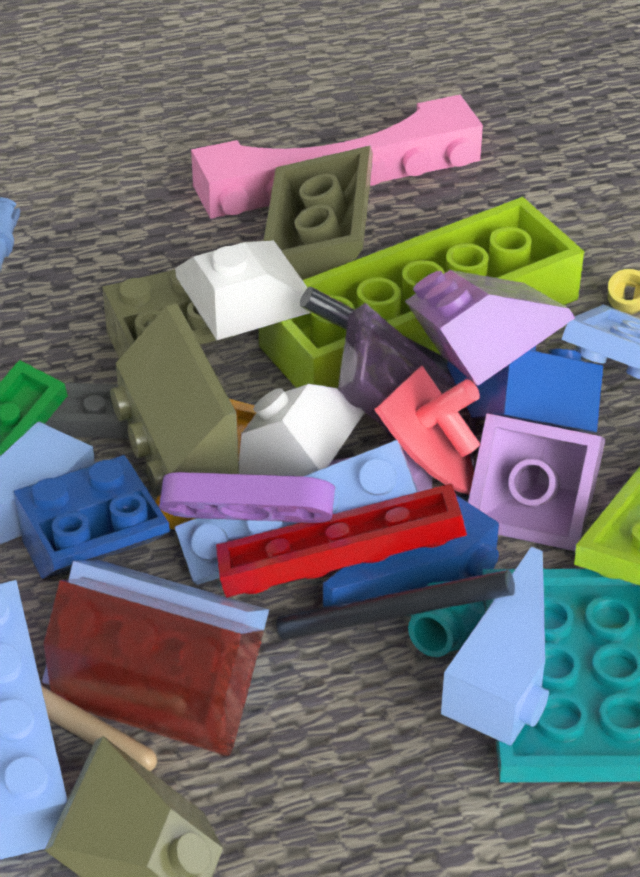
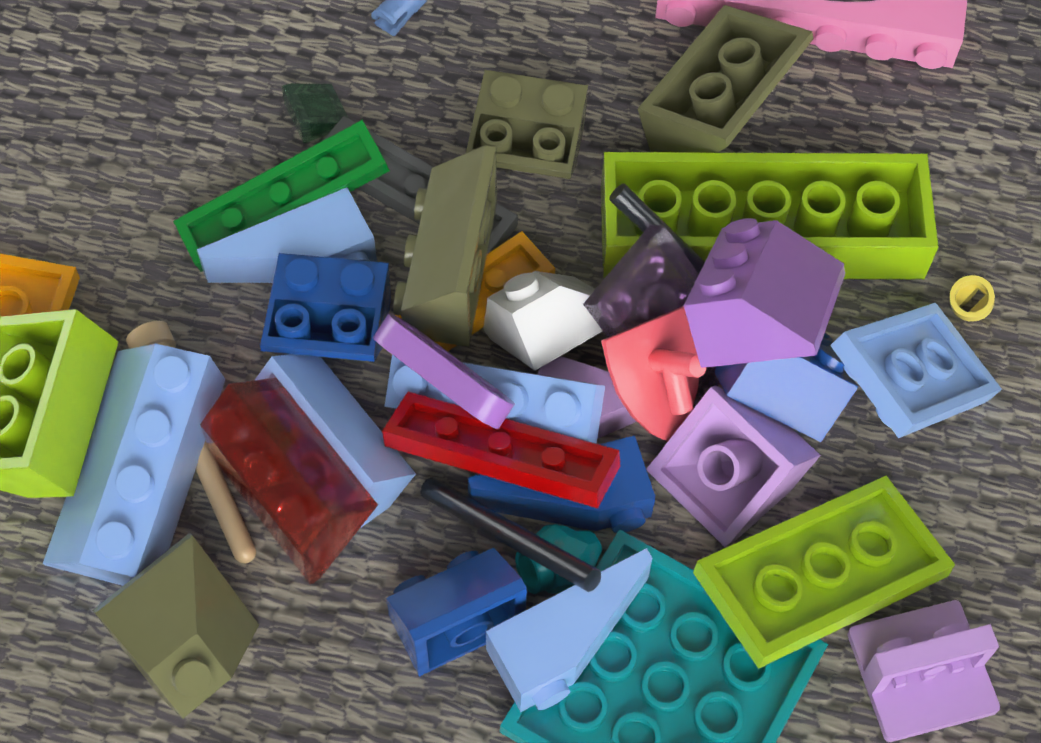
camera: 30 degrees right, 20 degrees up
(242, 287) = (595, 139): white slope -> none
(391, 692) = (455, 608): none -> blue slope

